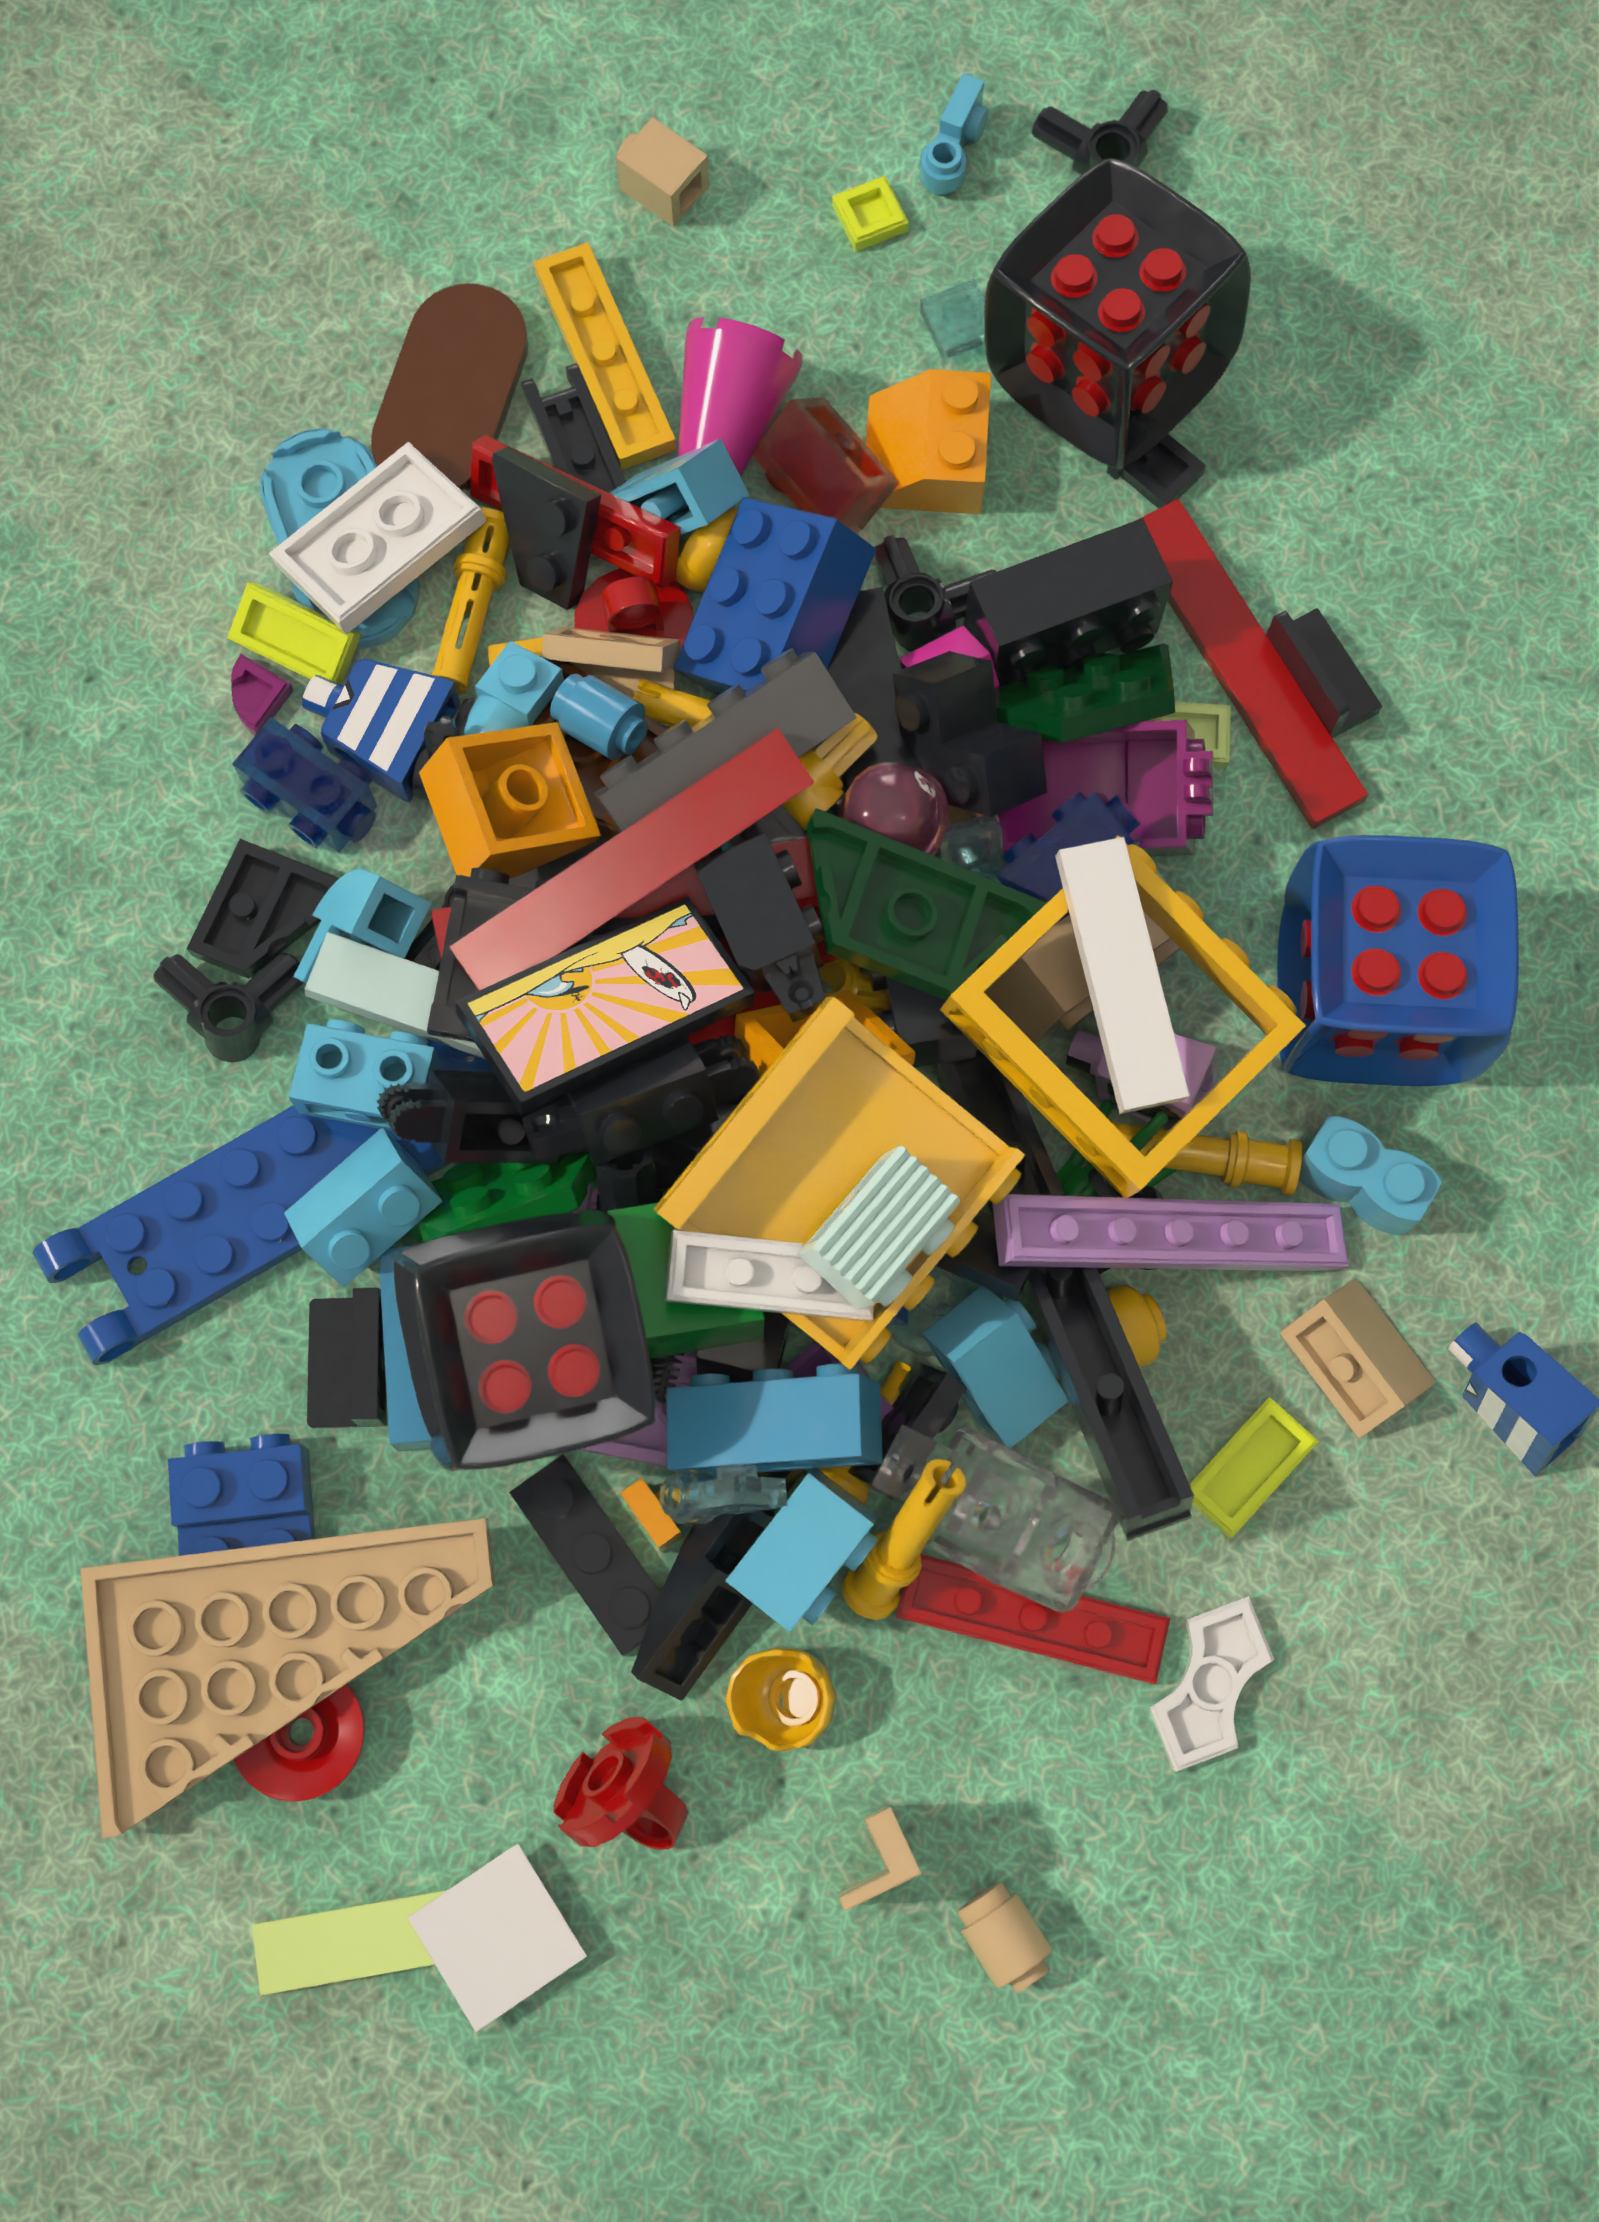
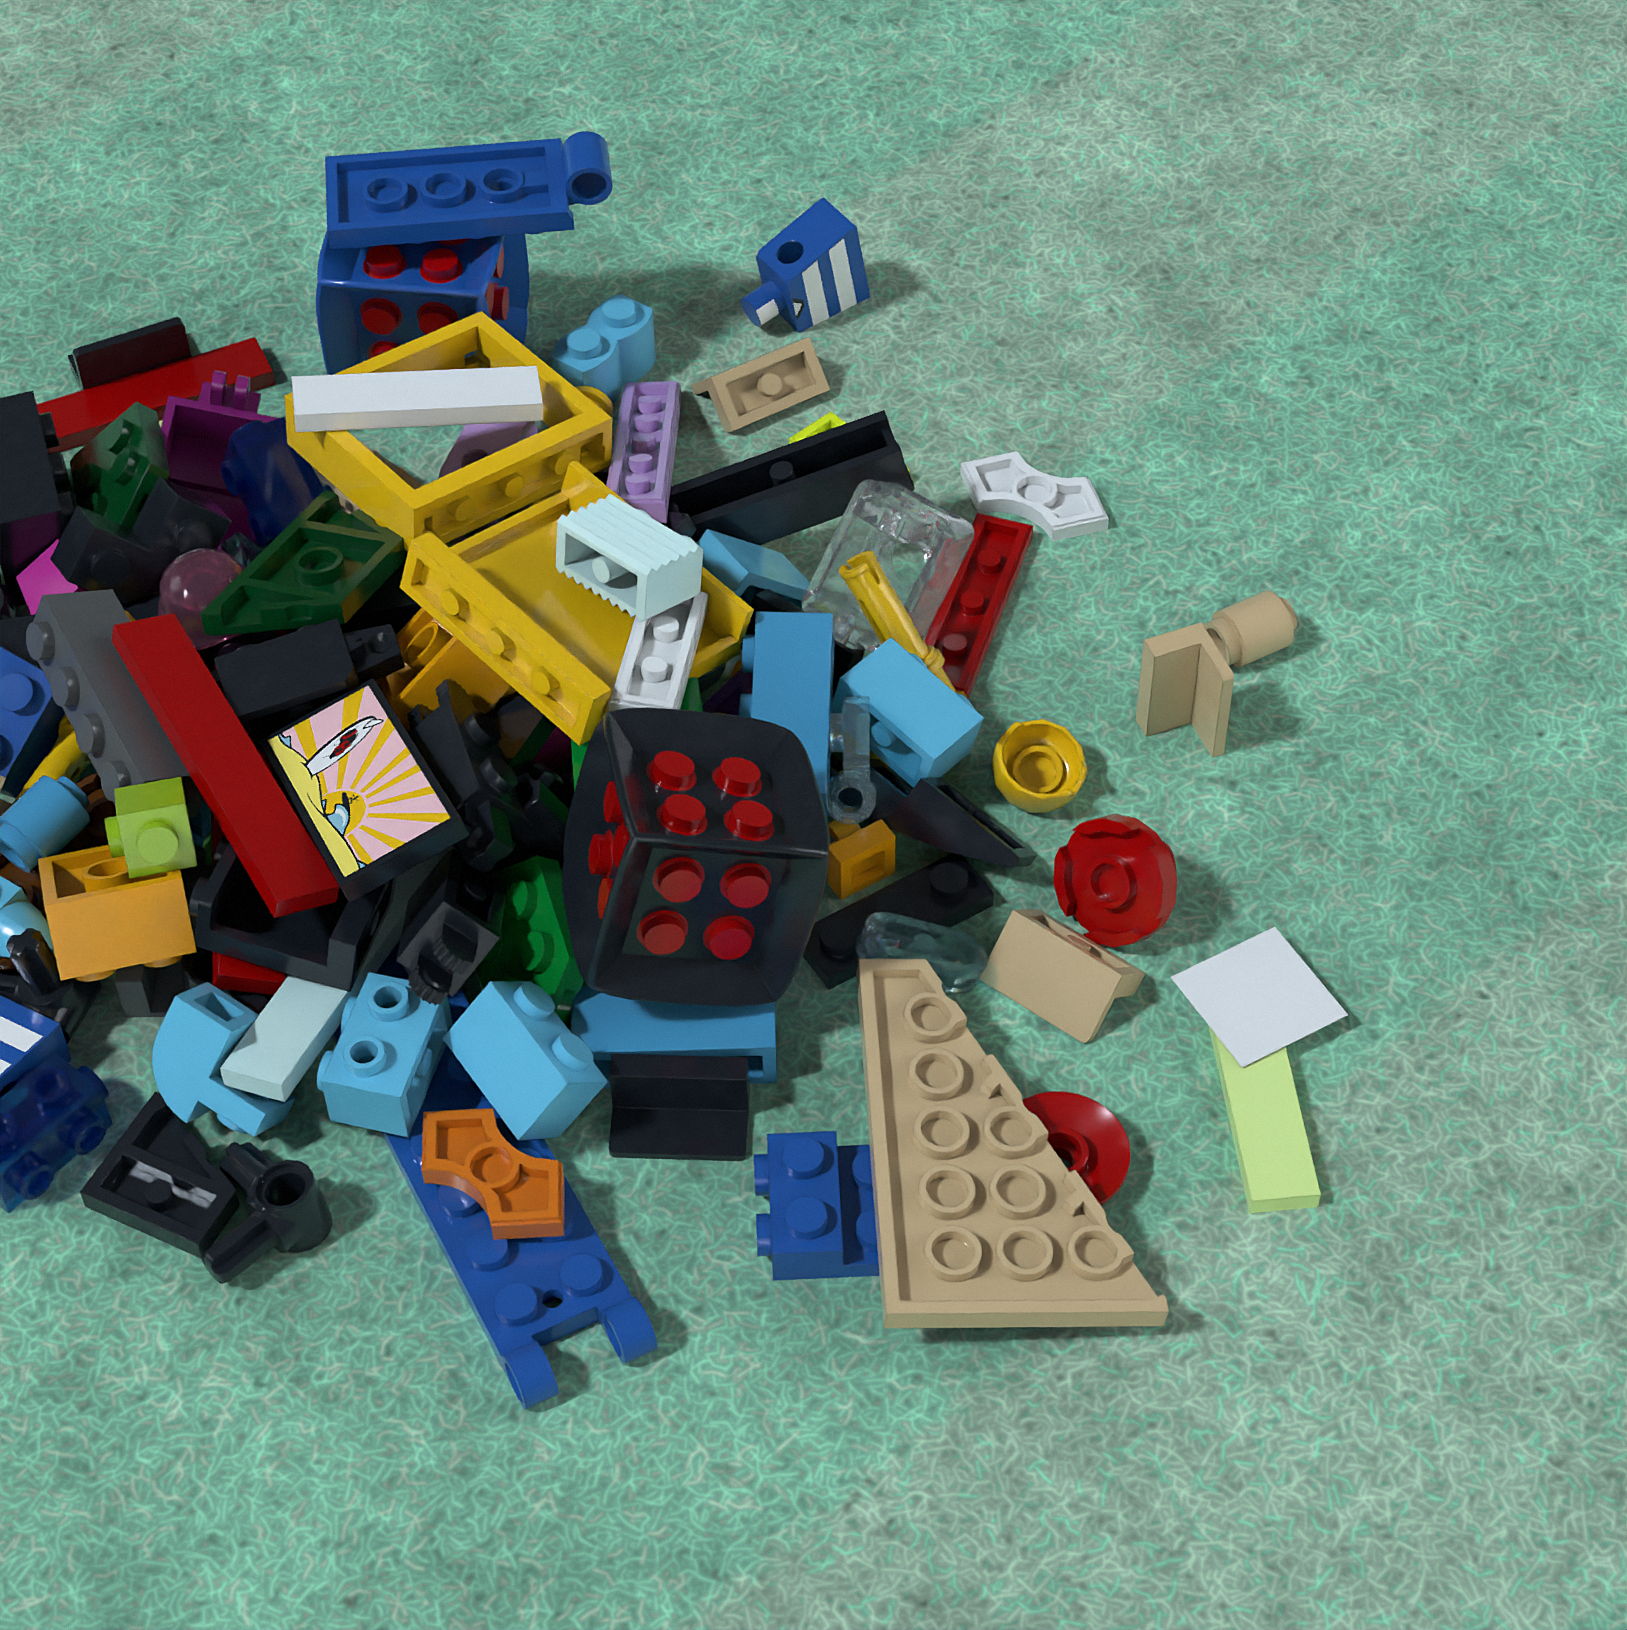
camera: 85 degrees left, 25 degrees down
(230, 1218) = (514, 1189): none -> orange tile
(526, 1580) = (950, 952): none -> clear light blue plate
(528, 1731) = (1058, 973): none -> tan panel
(551, 817) = (152, 828): none -> lime brick
(1454, 947) = (463, 190): none -> blue hinge

